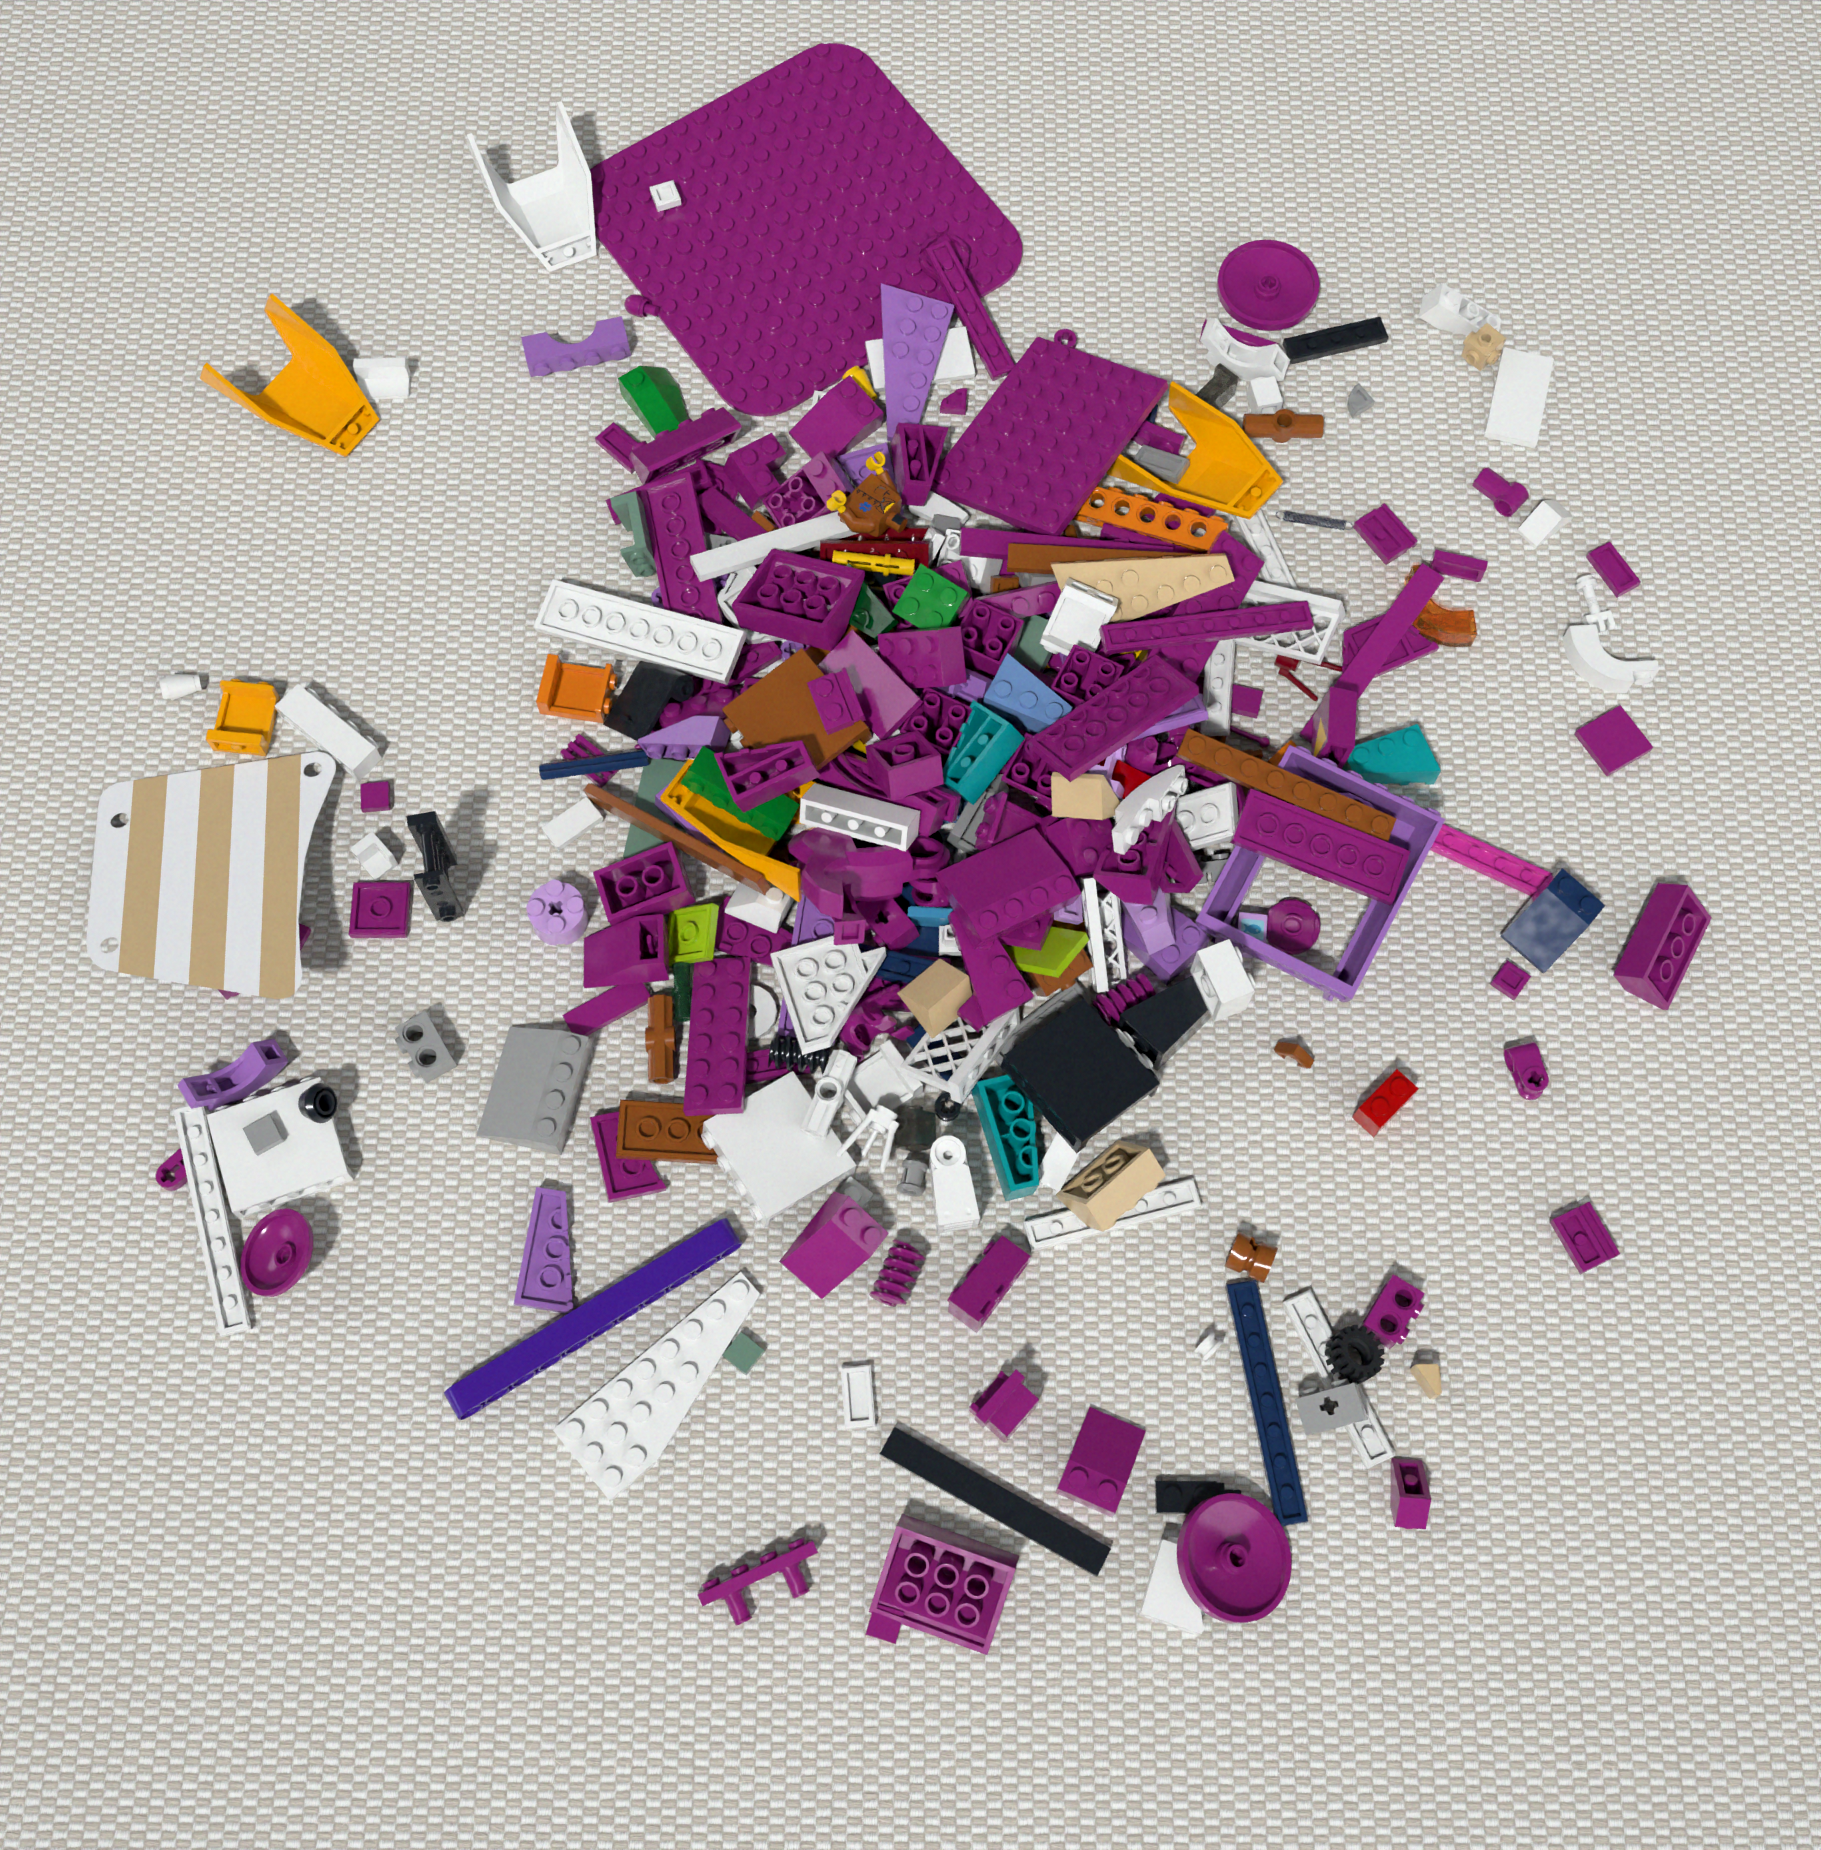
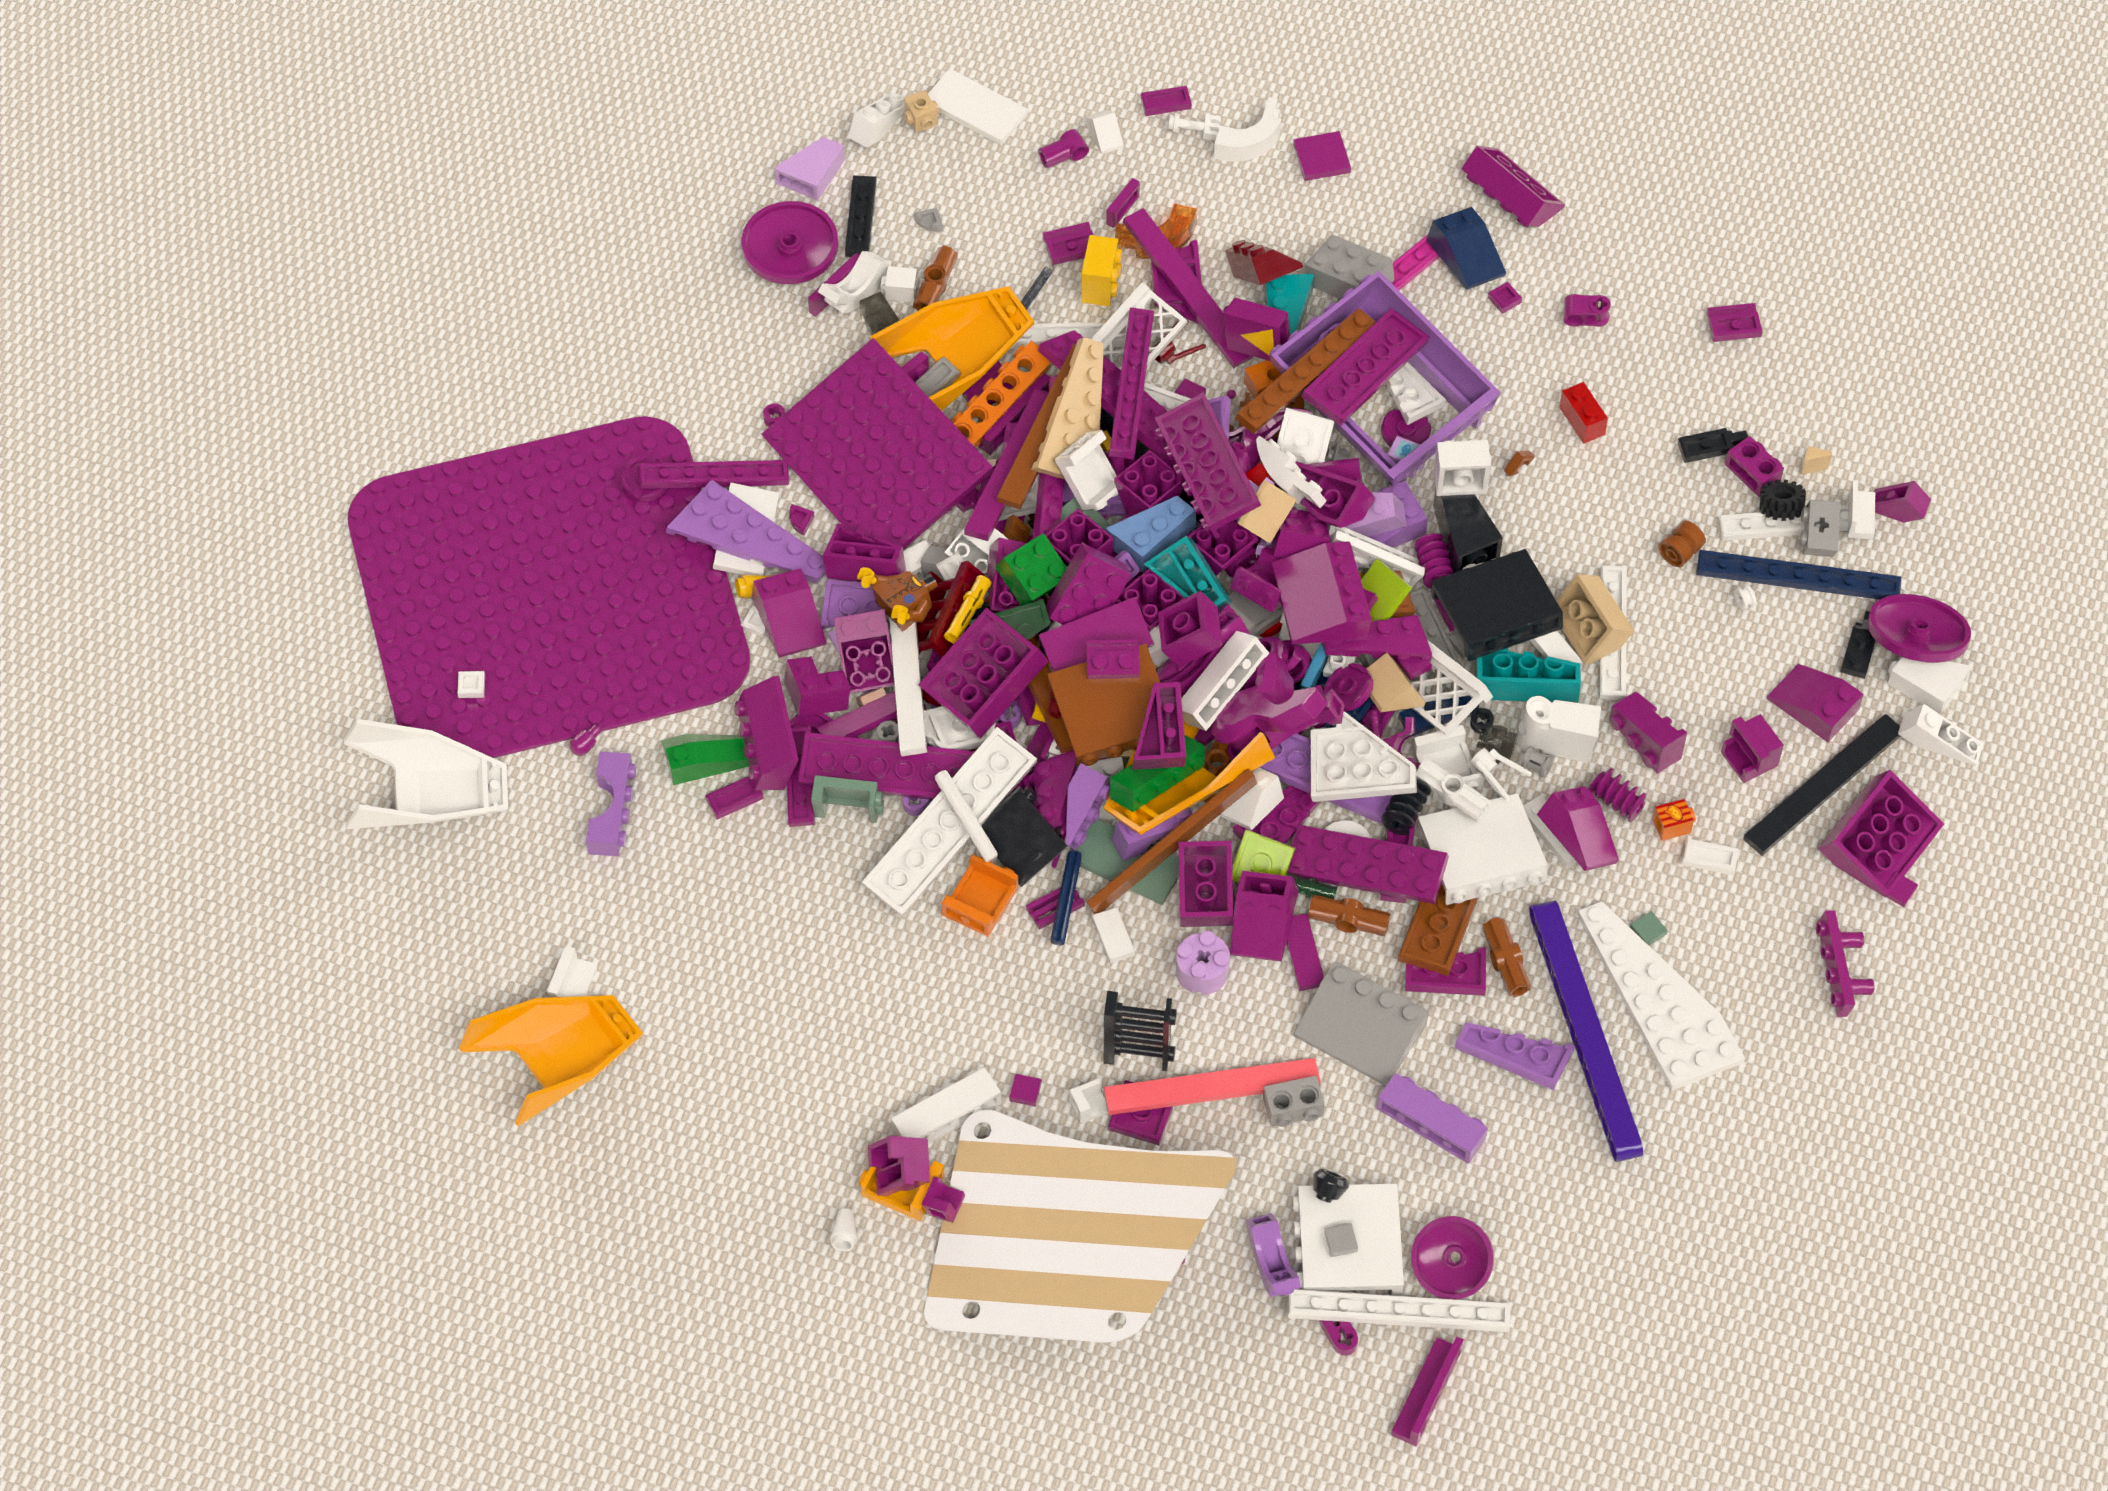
camera: 70 degrees left, 10 degrees down
(131, 1272) = (1427, 1390): none -> magenta fence
(226, 757) = (942, 1200): none -> magenta panel
(244, 705) = (900, 1163): none -> magenta plate
(421, 965) = (1204, 1086): none -> coral tile
(443, 1189) = (1432, 1117): none -> medium lavender brick
(641, 640) = (966, 816): none -> white axle
(659, 1211) = (1506, 957): none -> dark orange piece
(887, 1343) = (1673, 819): none -> orange brick
(919, 953) = (1351, 685): none -> magenta tile
(1101, 1622) = (1937, 734): none -> white slope
(1334, 919) = (1414, 394): none -> white wing
(1355, 566) = (1101, 270): none -> yellow brick
(1372, 278) = (811, 168): none -> lavender slope
(1372, 1450) = (1861, 513): none -> white panel
(1403, 1254) = (1709, 444): none -> black hinge
(1431, 713) = (1259, 263): none -> dark red slope
(1467, 802) = (1343, 264): none -> light grey brick

